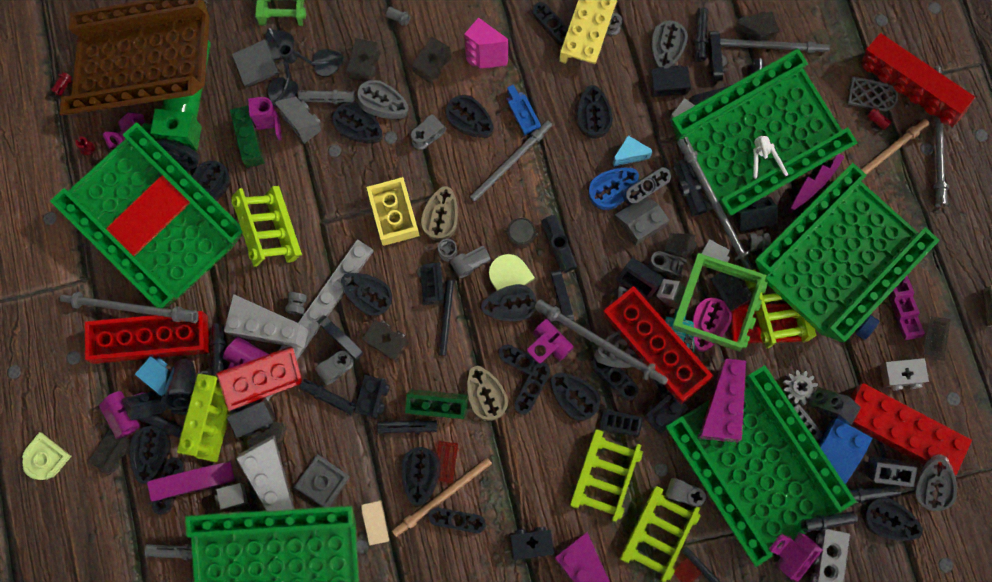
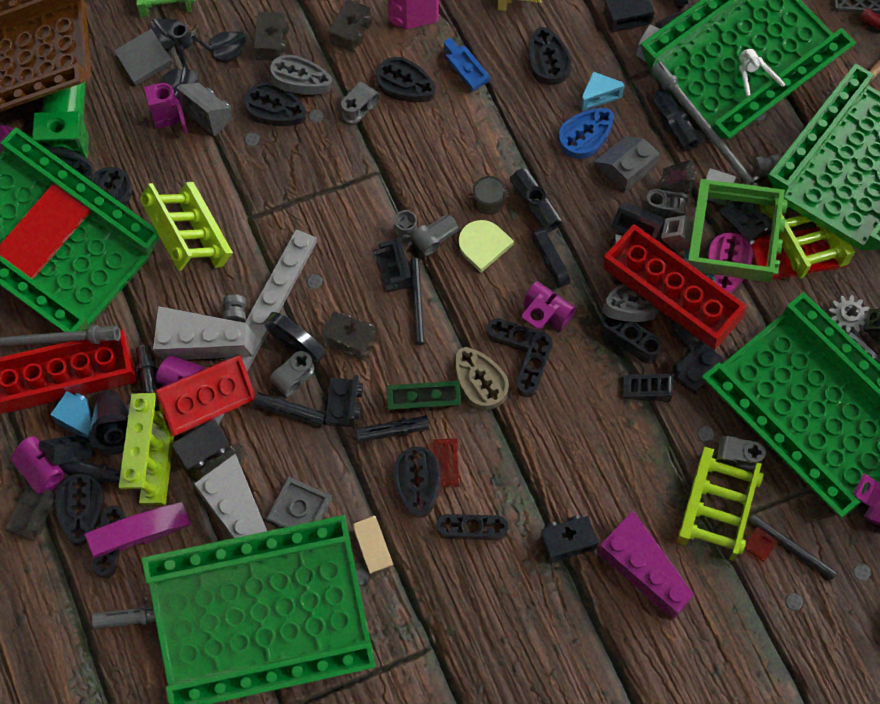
camera: 10 degrees left, 10 degrees down
(231, 496) = (189, 536): light grey brick -> none
(247, 137) = (146, 135): dark green brick -> none
(327, 96) = (234, 80): dark grey pin -> none
(363, 303) = (315, 298): black piece -> none
(392, 211) = (334, 191): light yellow brick -> none
(410, 521) = (415, 536): medium nougat bar -> none
(430, 215) = (379, 189): dark tan piece -> none
(513, 314) = (497, 283): black piece -> none
(536, 136) = (485, 91): dark grey bar -> none
(554, 314) = (545, 275): dark grey bar -> none
(584, 391) = (581, 376): black piece -> none
(586, 479) = (619, 455): lime fence -> none
(638, 186) = (621, 131): black beam -> none
(725, 408) = (768, 345): magenta wedge -> none
(757, 214) = (758, 136): black hinge -> none
(812, 186) = (816, 97): magenta slope -> none

